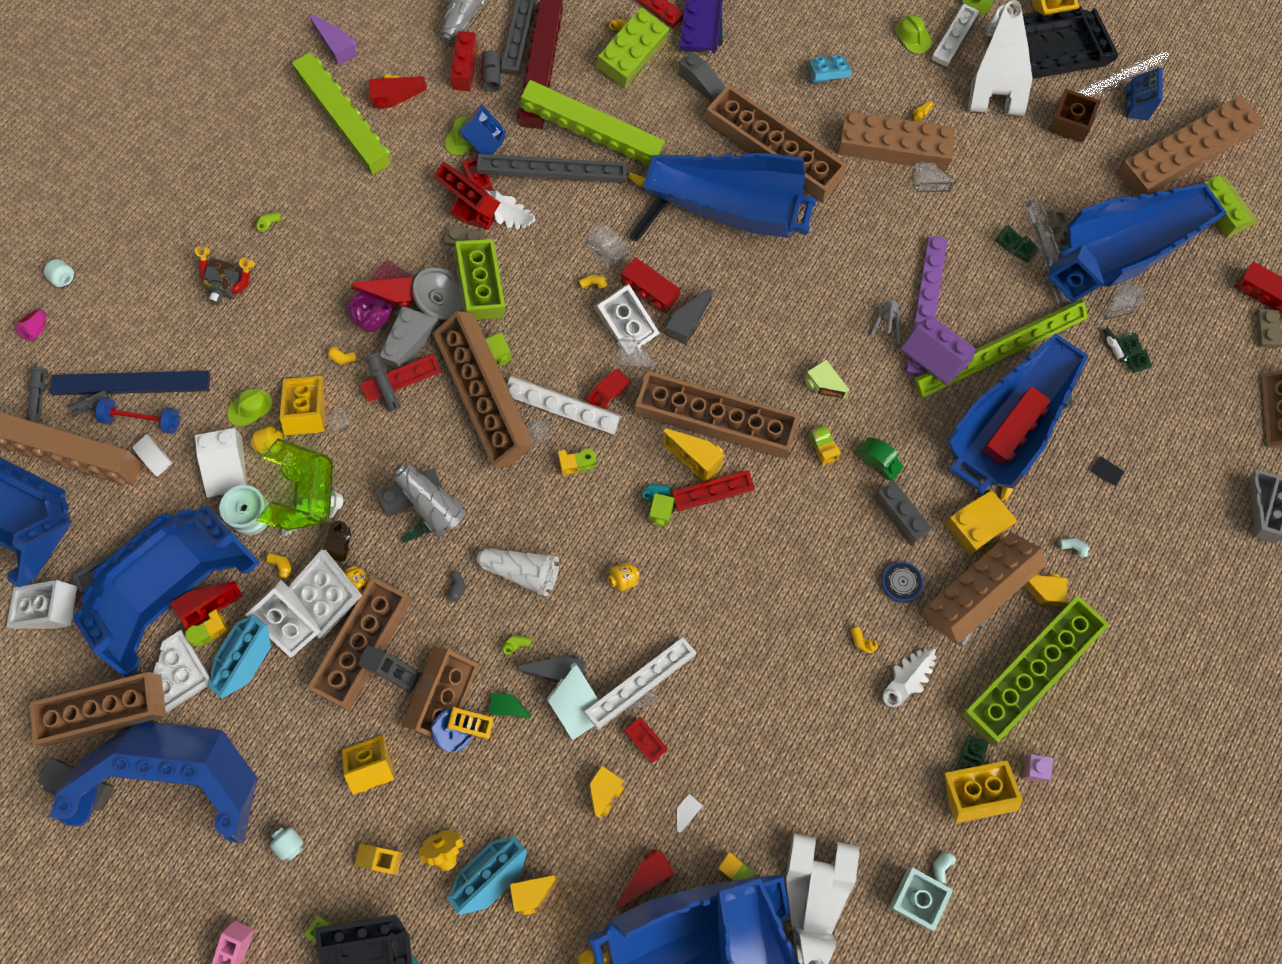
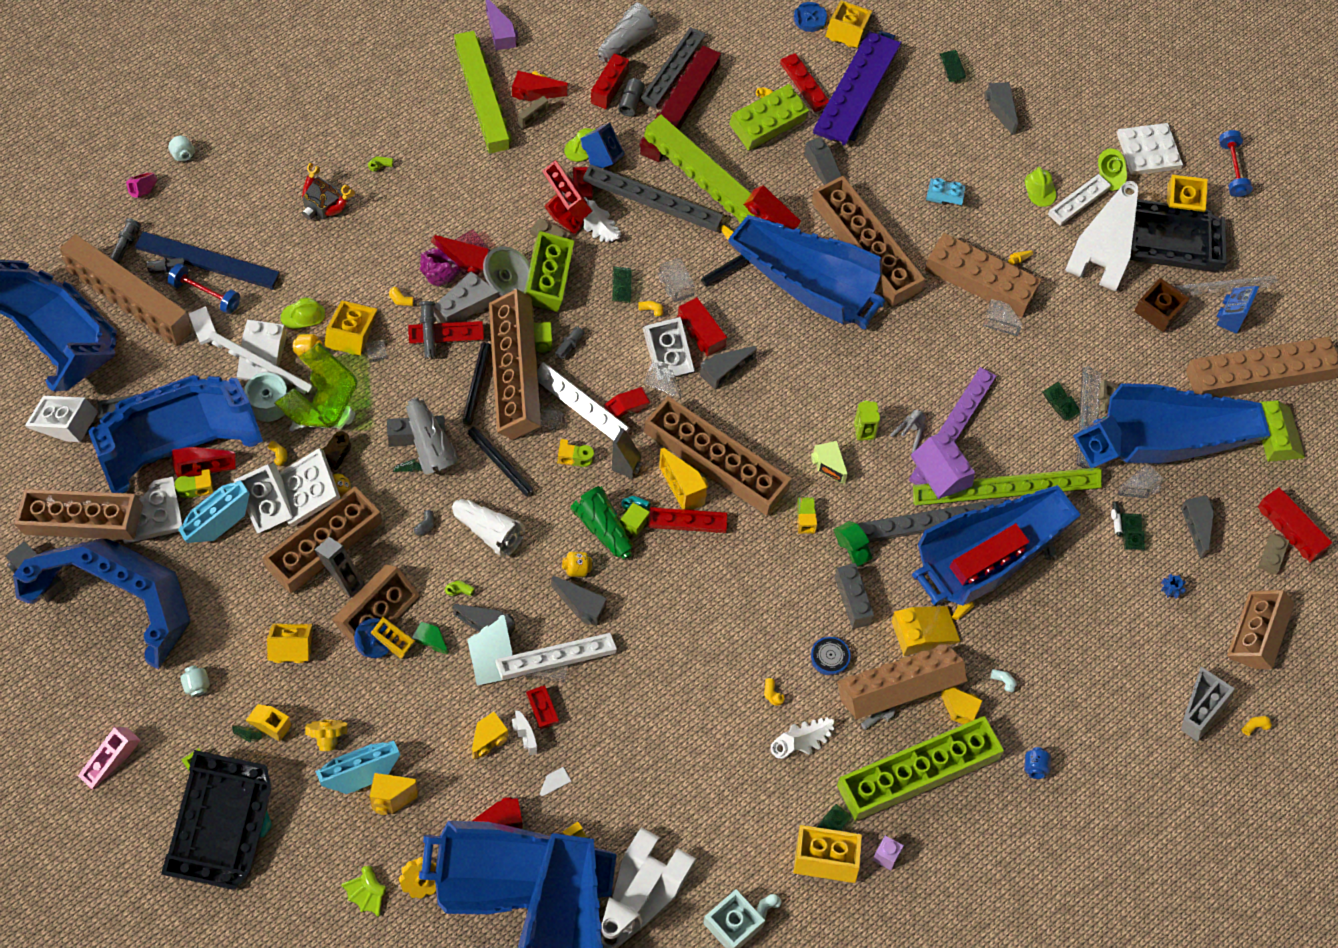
camera: 15 degrees right, 10 degrees down
(218, 475) = (253, 359): none -> white plate
(360, 878) = (246, 733): none -> clear green bar
(399, 120) = (533, 112): none -> dark tan plate
(451, 420) = (476, 383): none -> black axle
(506, 494) = (500, 461): none -> black axle
(527, 346) = (569, 342): none -> dark grey axle
(555, 268) = (621, 284): none -> clear green slope
(630, 447) = (625, 455): none -> dark grey slope
(632, 523) = (602, 520): none -> green cone
(634, 769) = (524, 730): none -> white slope
(644, 615) = (584, 603): none -> dark grey slope
(670, 141) = (769, 207): none -> red brick
(847, 328) = (866, 420): none -> lime brick
(943, 407) = (916, 523): none -> dark grey plate
(1107, 471) = (1064, 626): black piece -> none
(1140, 622) = (1037, 763): none -> blue head
(1192, 321) = (1199, 517): none -> dark grey slope
(1193, 394) = (1173, 586): none -> blue gear

